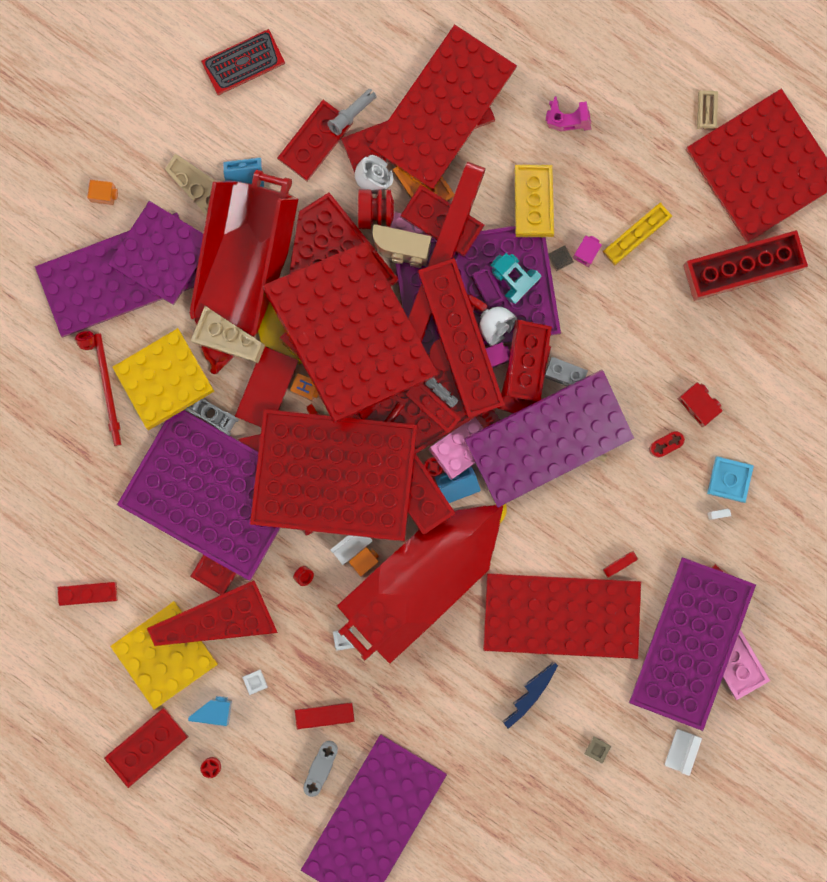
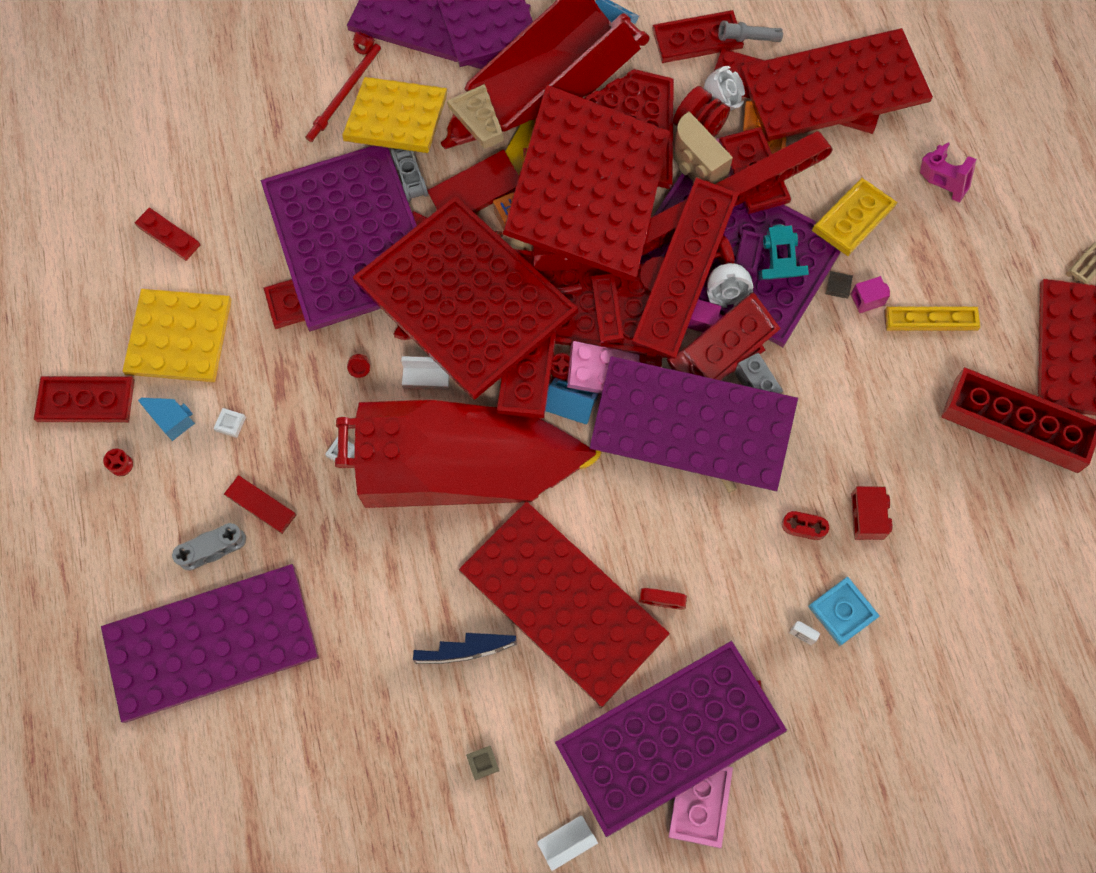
camera: 45 degrees right, 15 degrees down
(223, 617) = (260, 343): red wing -> none
(364, 561) = (423, 391): orange brick -> none
(442, 392) = (626, 302): light grey axle -> none

